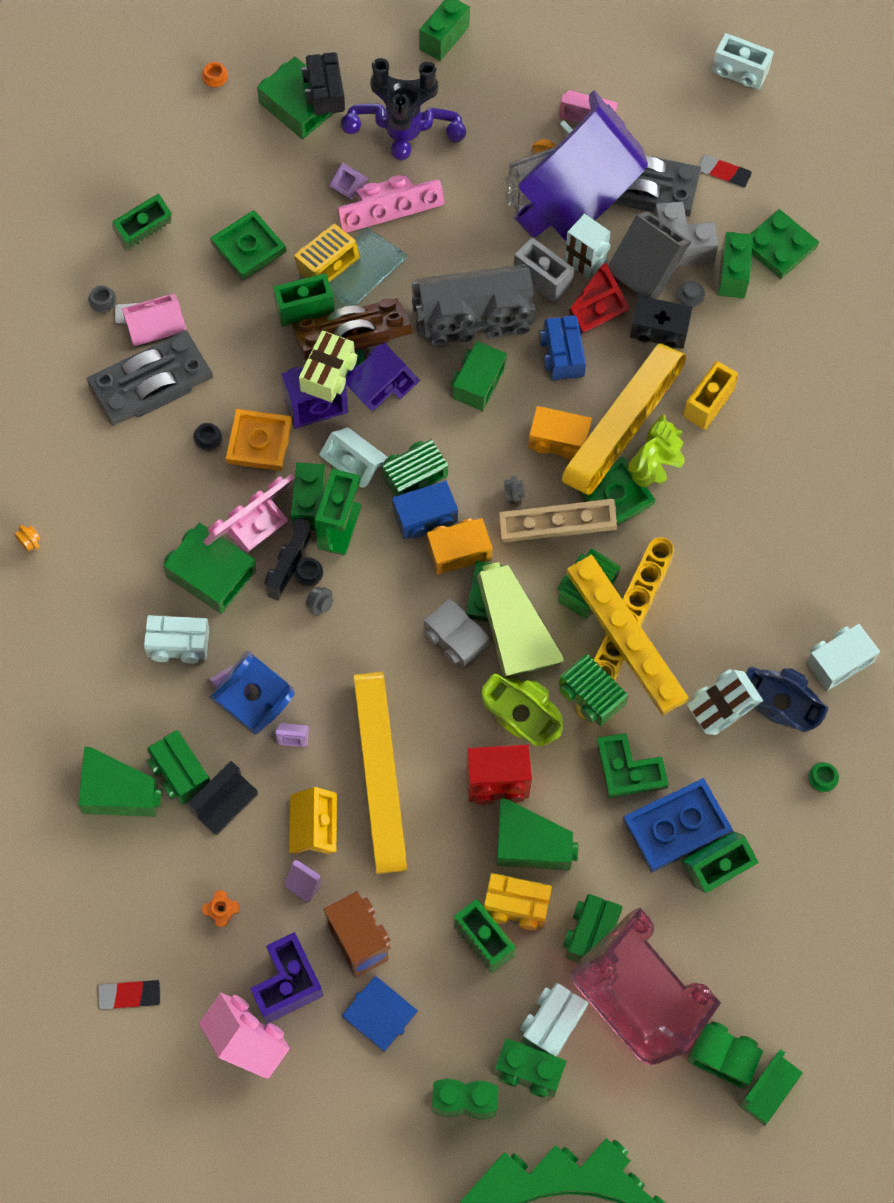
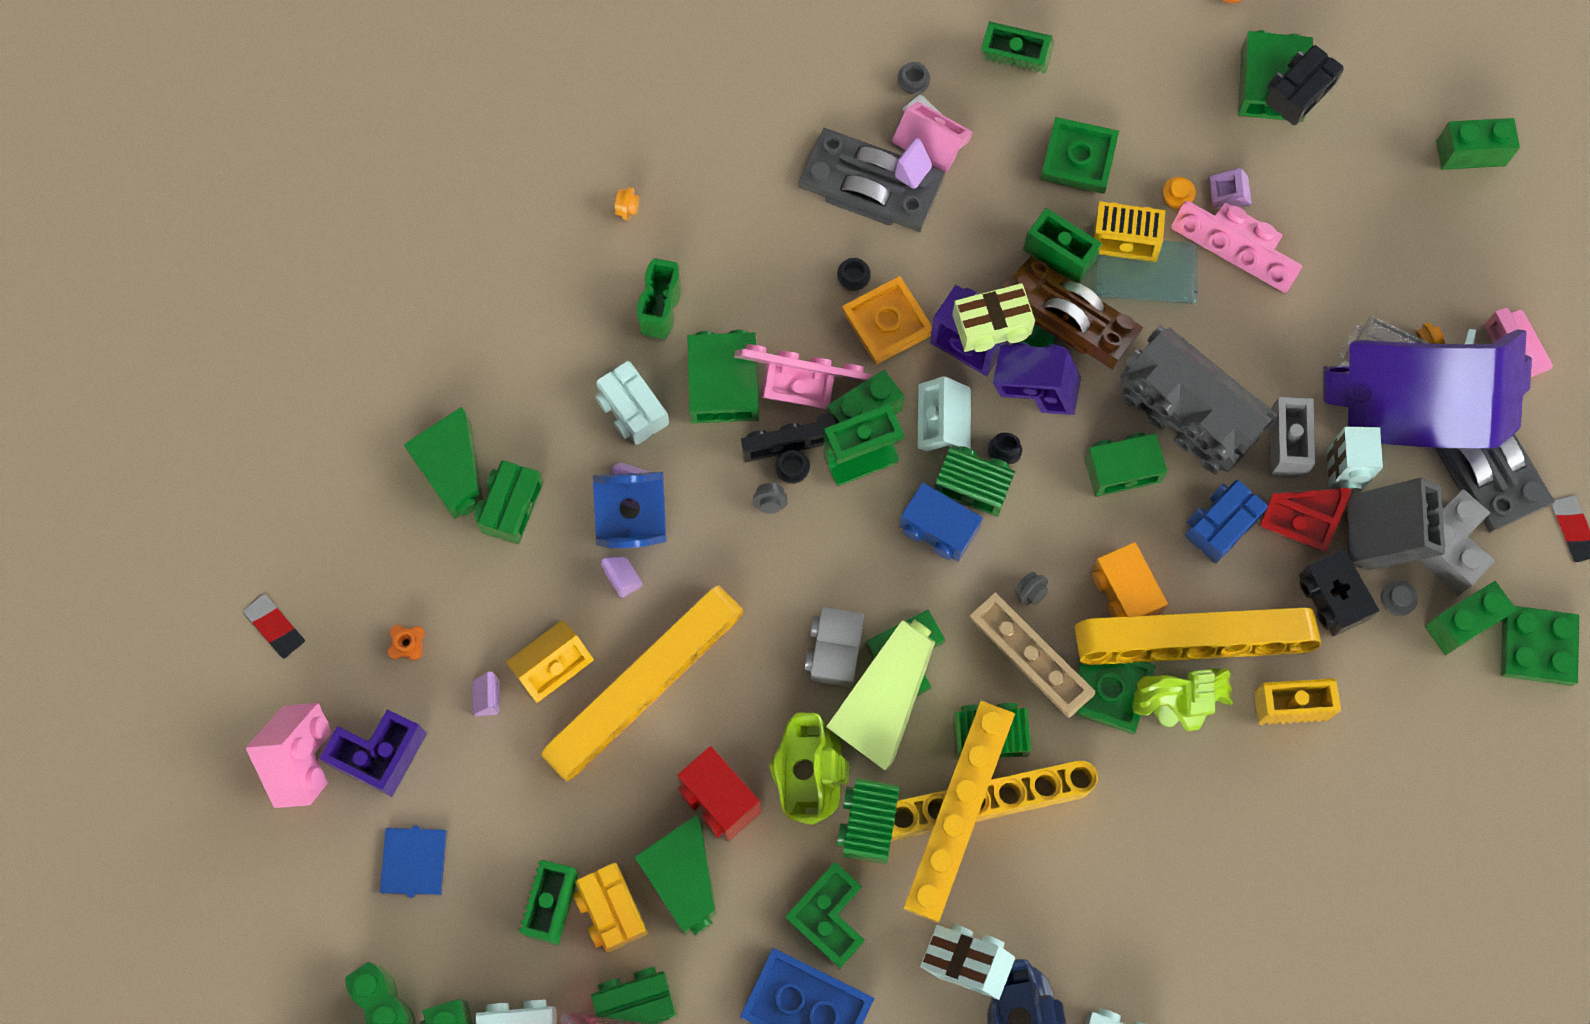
camera: 55 degrees right, 5 degrees up
(119, 565) = (659, 298): none -> green brick
(168, 342) = (913, 164): none -> lavender slope
(222, 798) = (511, 563): black panel -> none
(325, 210) = (1177, 191): none -> light orange plate
(356, 933) = (462, 782): dark orange brick -> none
(403, 108) = (1342, 172): wheel -> none
(407, 435) = (1005, 447): none -> black plate
(459, 545) = (929, 581): light orange brick -> none

